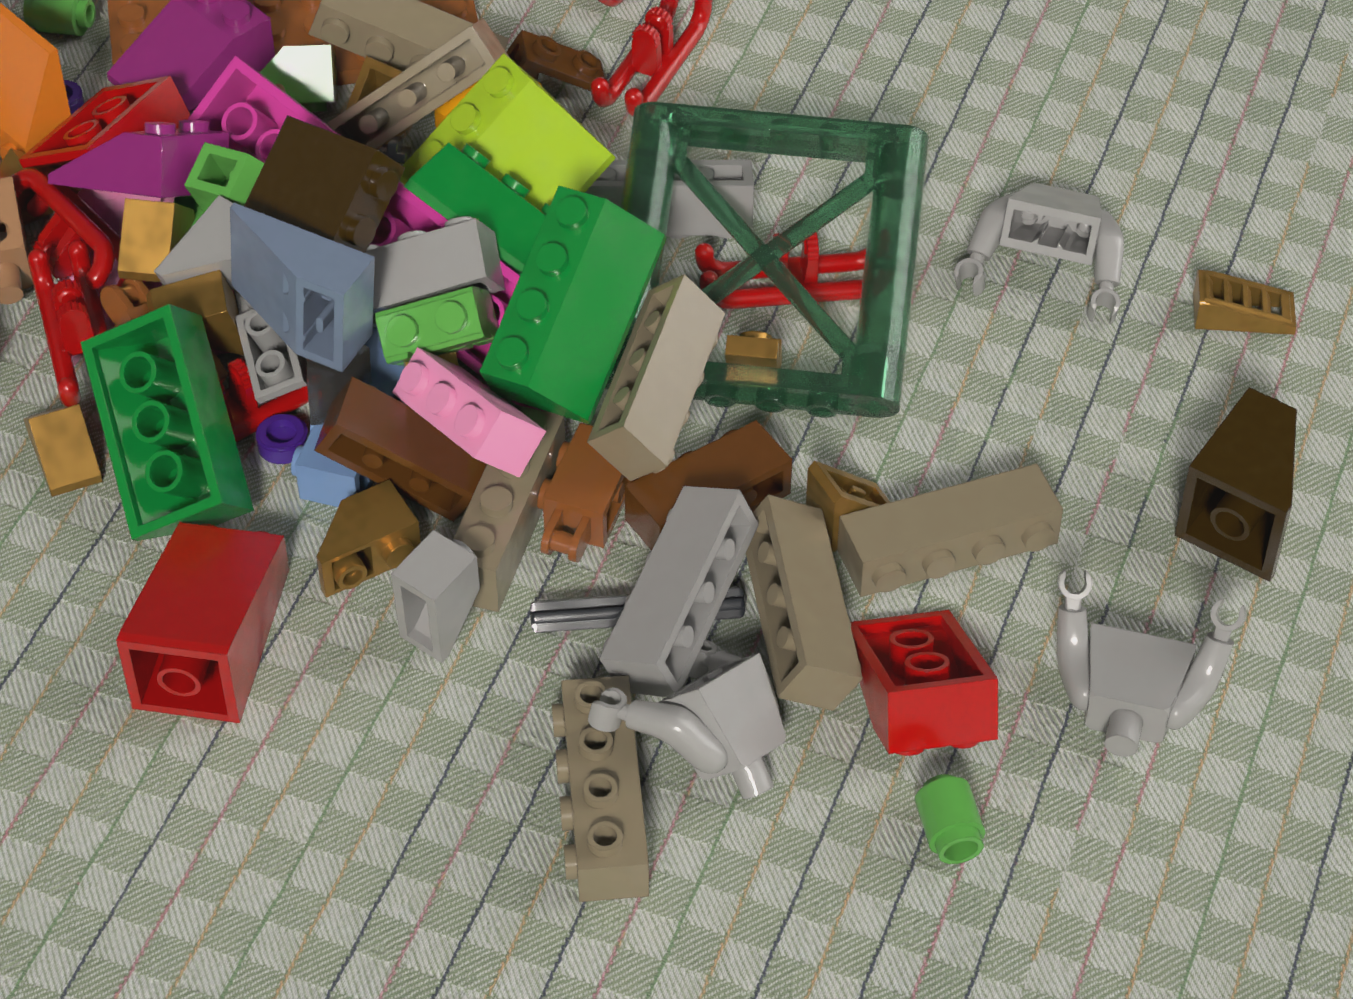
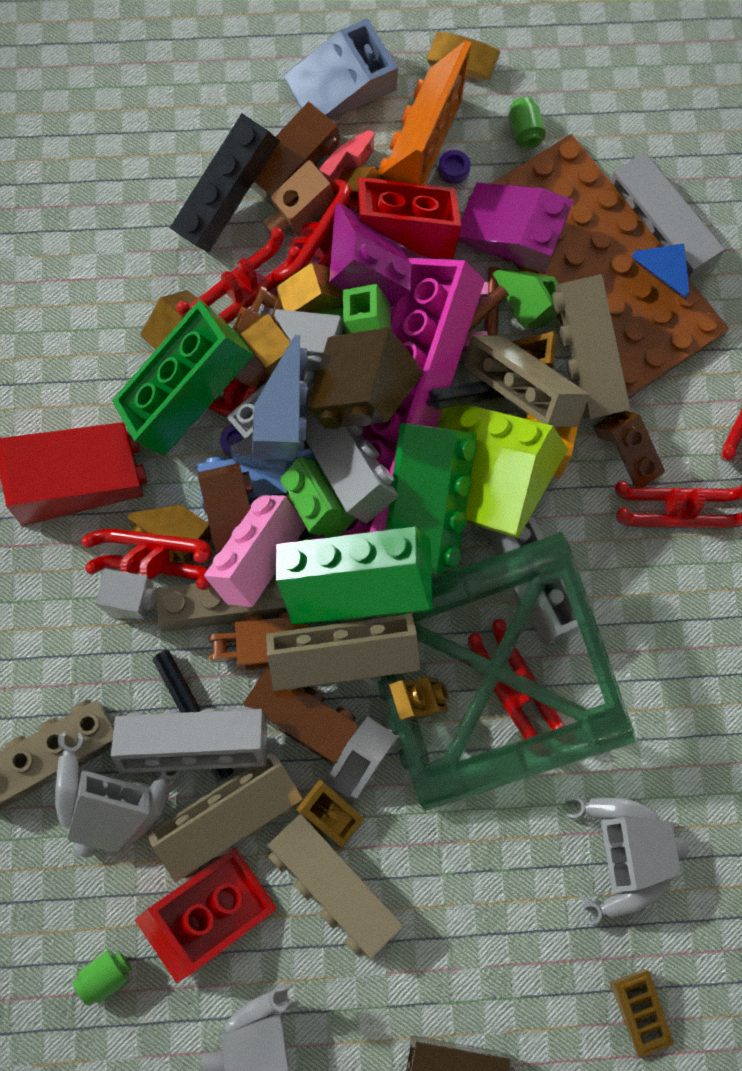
camera: 60 degrees right, 25 degrees up
(390, 543) = (150, 555): none -> red piece
(804, 433) = (360, 760): none -> light grey slope

